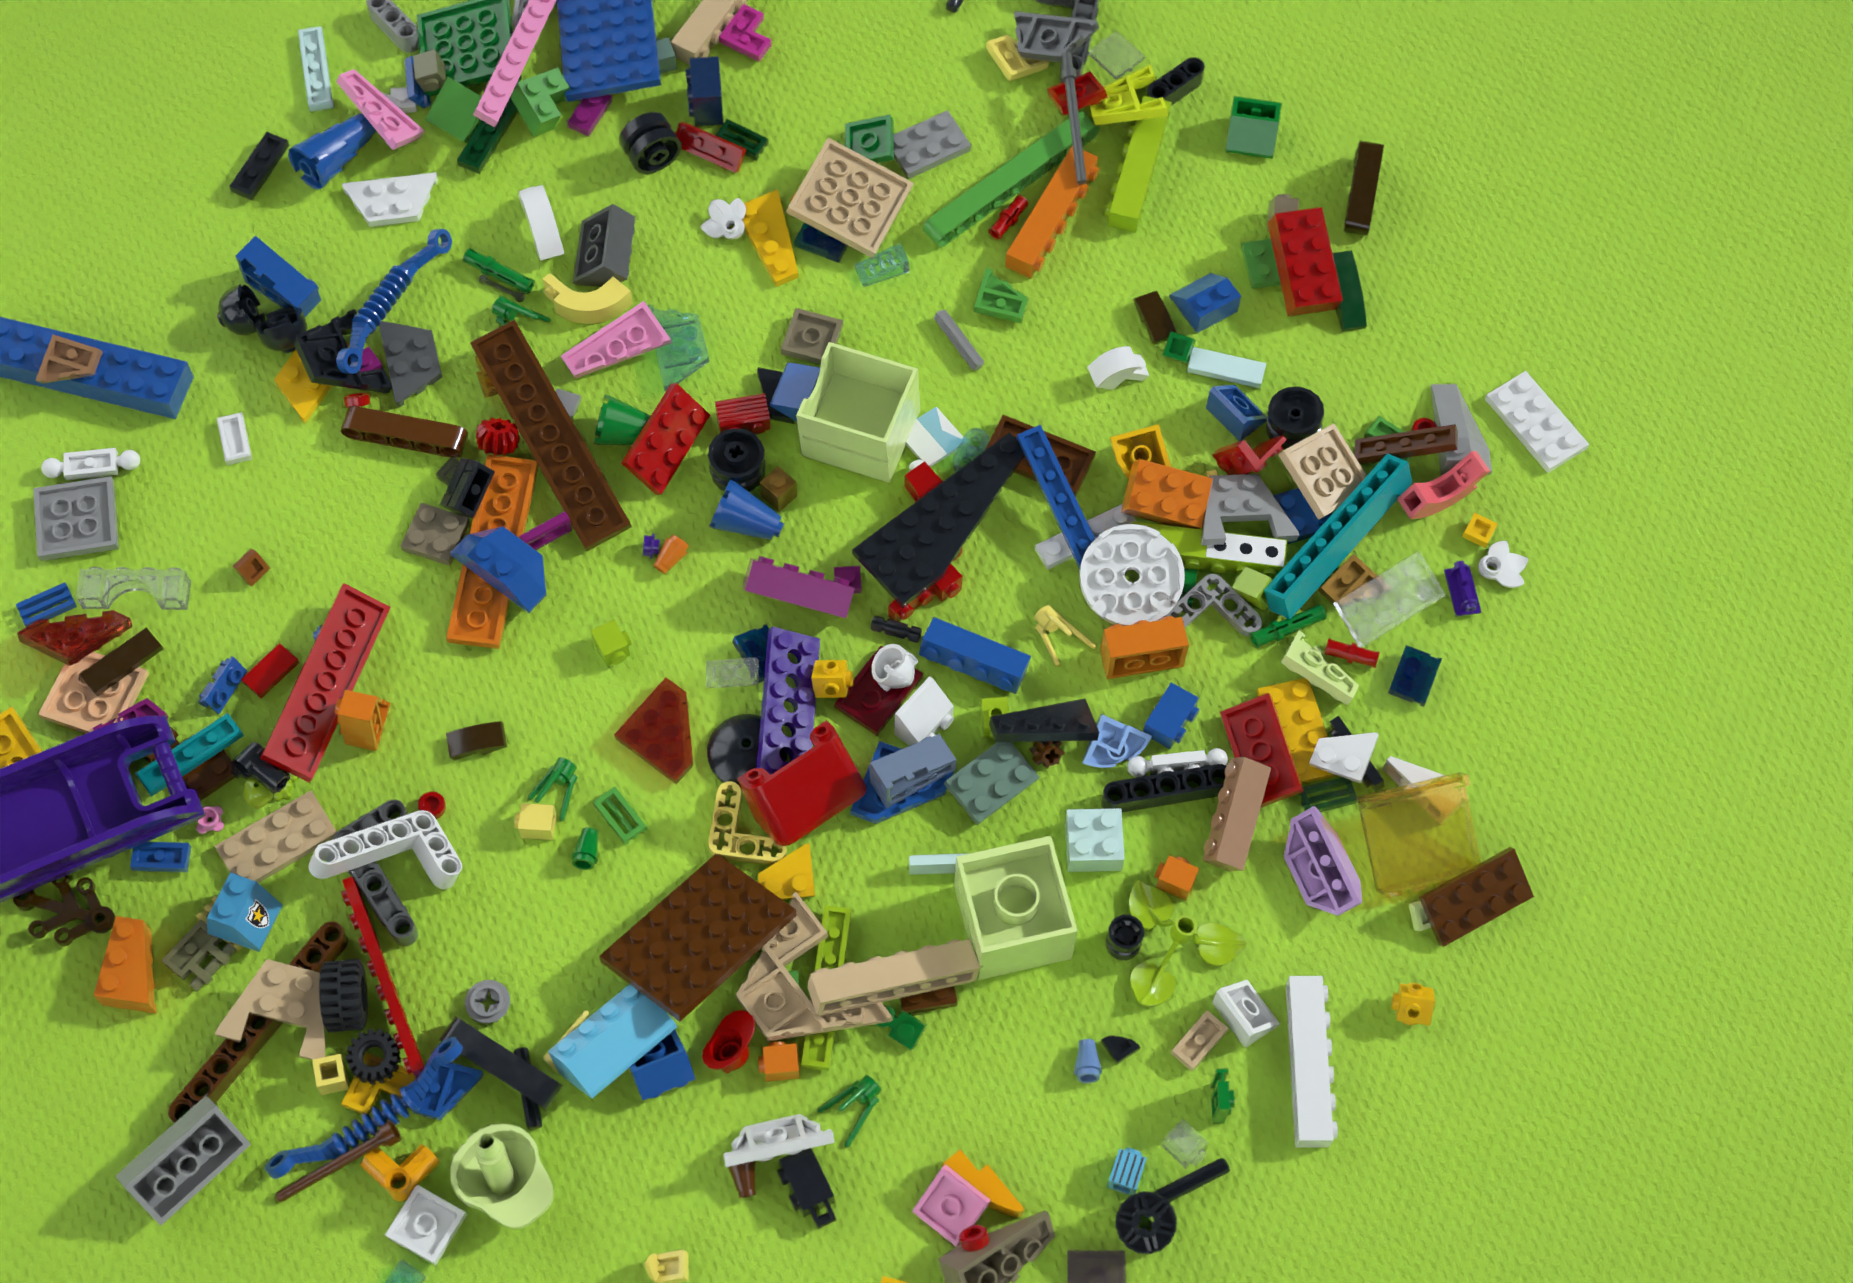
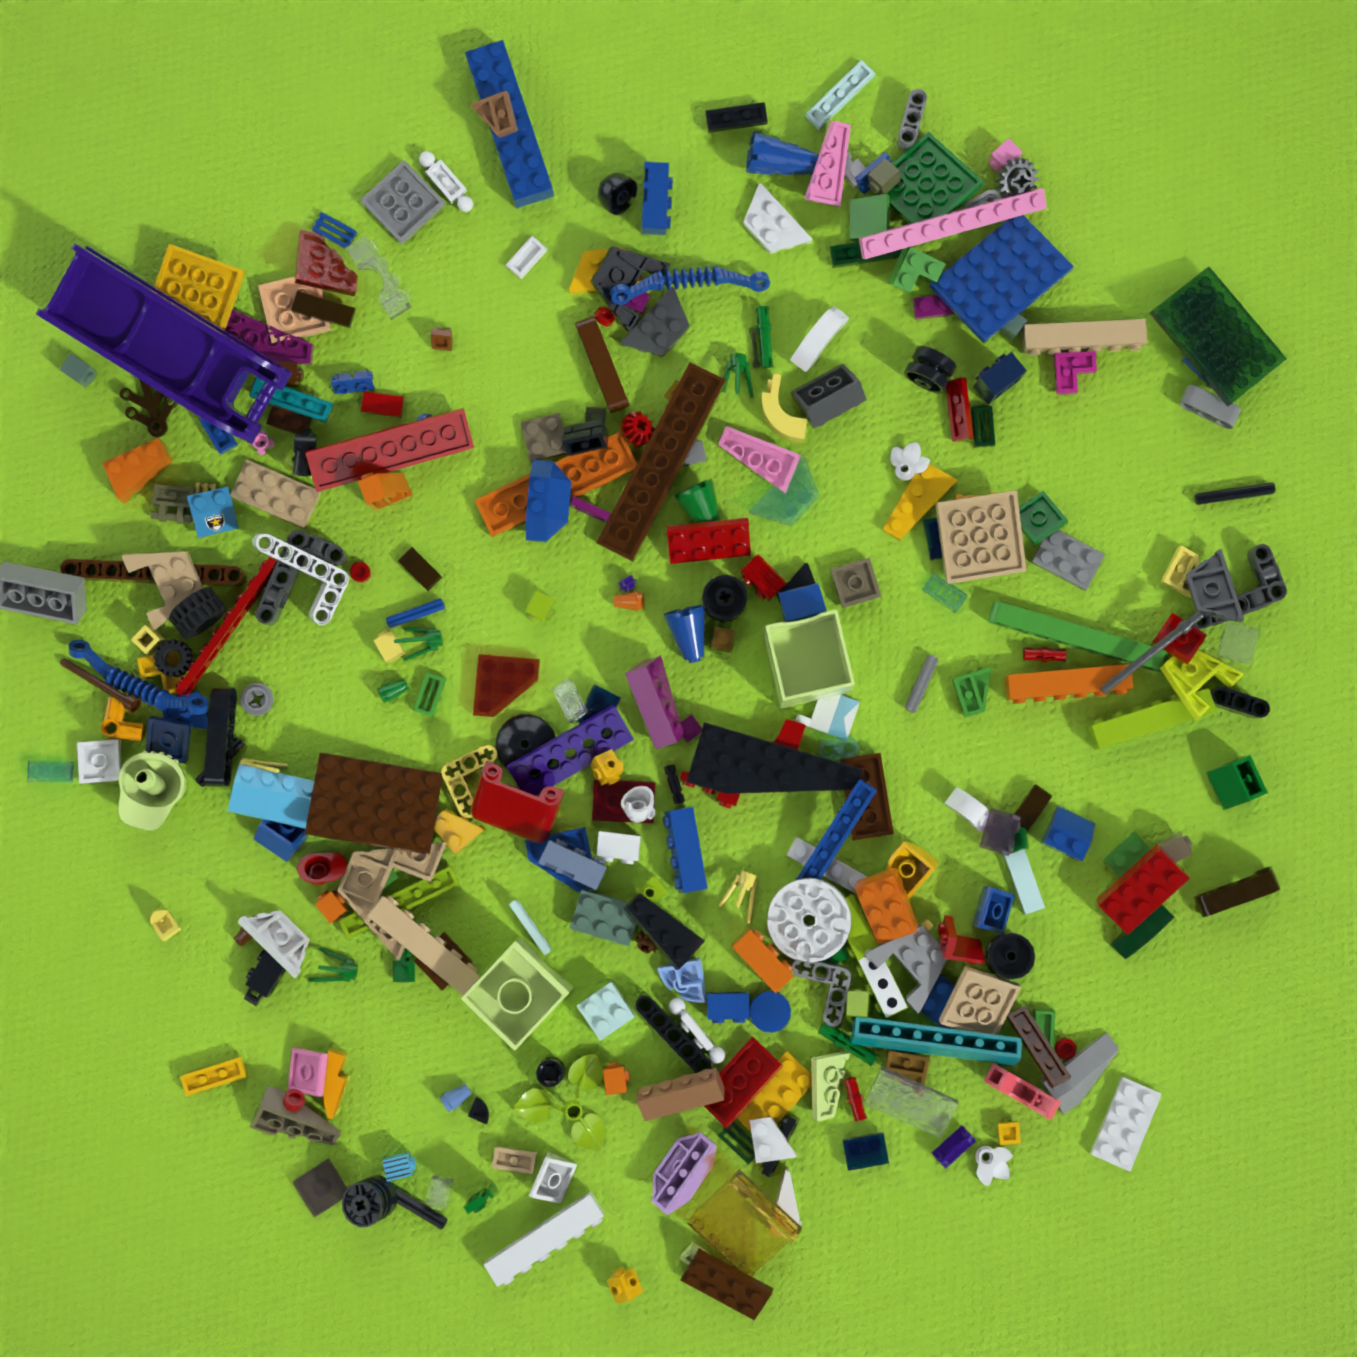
camera: 60 degrees right, 20 degrees up
(281, 328) = (620, 229): black cylinder -> none
(456, 1120) = (169, 737): none -> dark blue plate
(520, 775) = (415, 613): none -> blue axle
(1161, 354) = (1000, 832): none -> clear purple brick
(1205, 679) = (770, 1011): none -> blue tile

